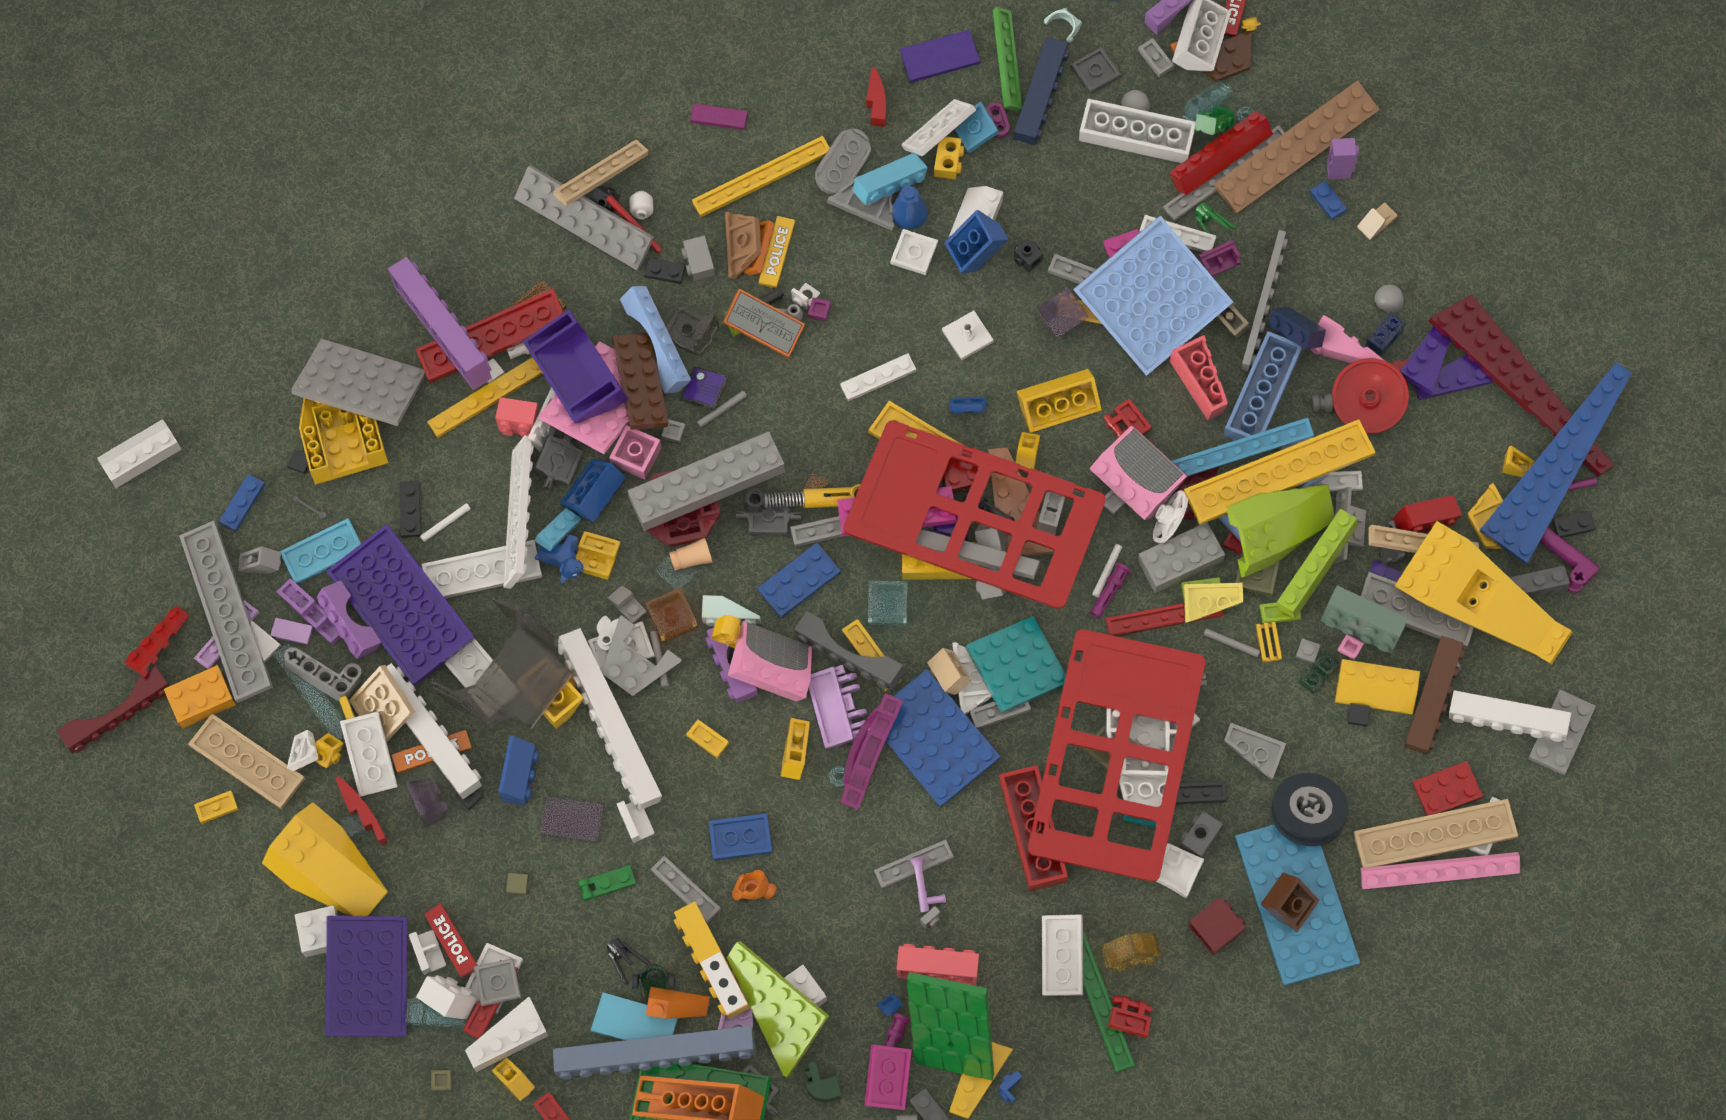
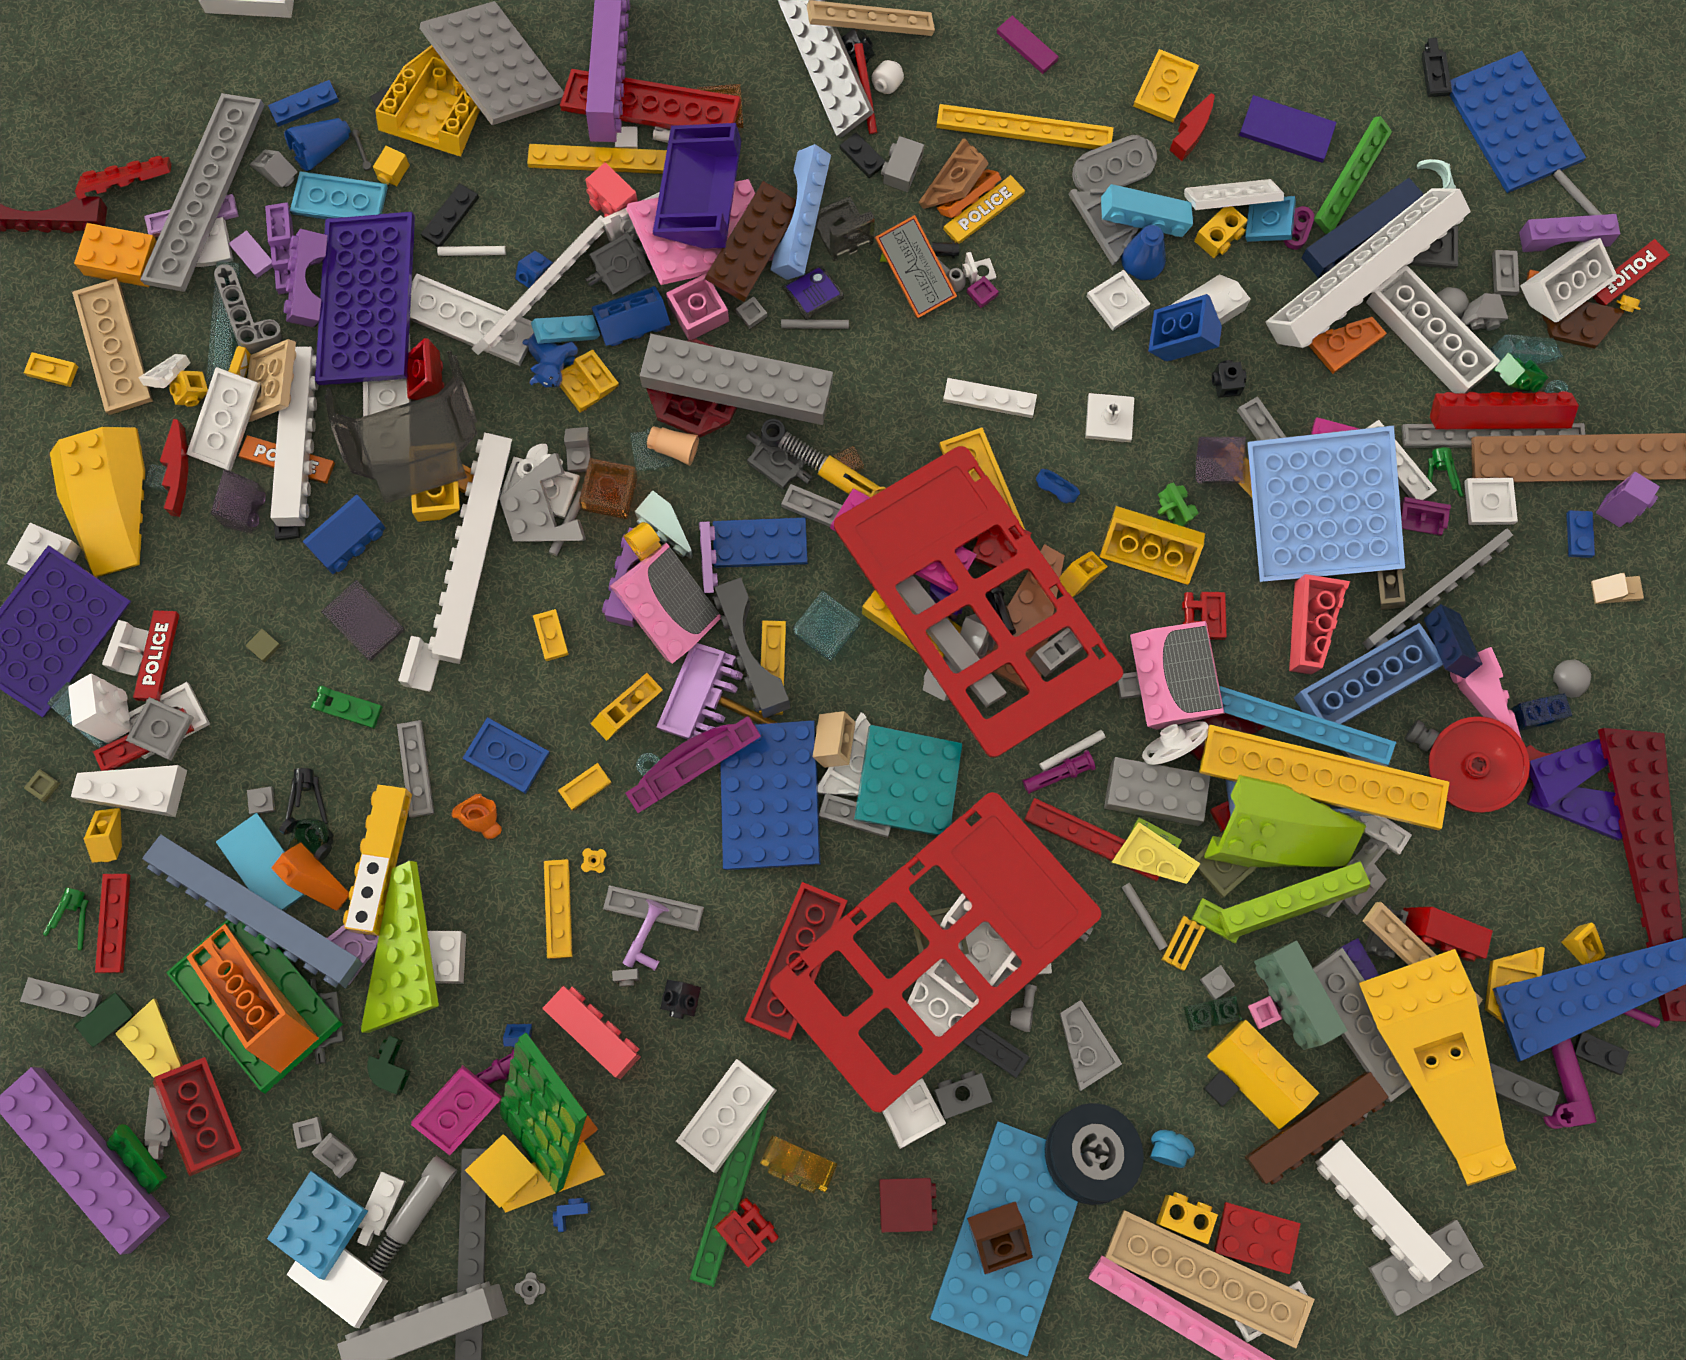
camera: 30 degrees right, 5 degrees up
(276, 523) = (316, 141): none -> blue cone
(342, 503) = (391, 166): none -> yellow brick
(484, 626) = (424, 371): none -> red slope
(498, 506) = (531, 268): none -> blue bracket
(598, 983) = (261, 800): none -> light grey plate
(766, 606) = (708, 557): none -> lavender wing
(807, 820) = (584, 786): none -> yellow tile
(836, 82) = (1166, 85): none -> yellow plate
(845, 860) = (588, 855): none -> yellow plate
(851, 909) = (558, 909): none -> yellow tile
(873, 697) = (744, 711): none -> pearl gold bar
(946, 1092) = (501, 1170): none -> yellow slope
(977, 905) = (680, 999): none -> black brick
(1055, 364) = (1174, 506): none -> bright green hips
(1064, 117) = (1368, 267): none -> white brick
(1085, 179) = (1344, 344): none -> orange wing
(1162, 95) = (1485, 312): none -> light grey slope
(1201, 760) = (1022, 1017): none -> light grey bar
(1255, 218) = (1490, 501): none -> white plate
(1355, 772) = (1171, 1148): none -> dark azure piece
(1397, 812) = (1185, 1223): none -> yellow brick

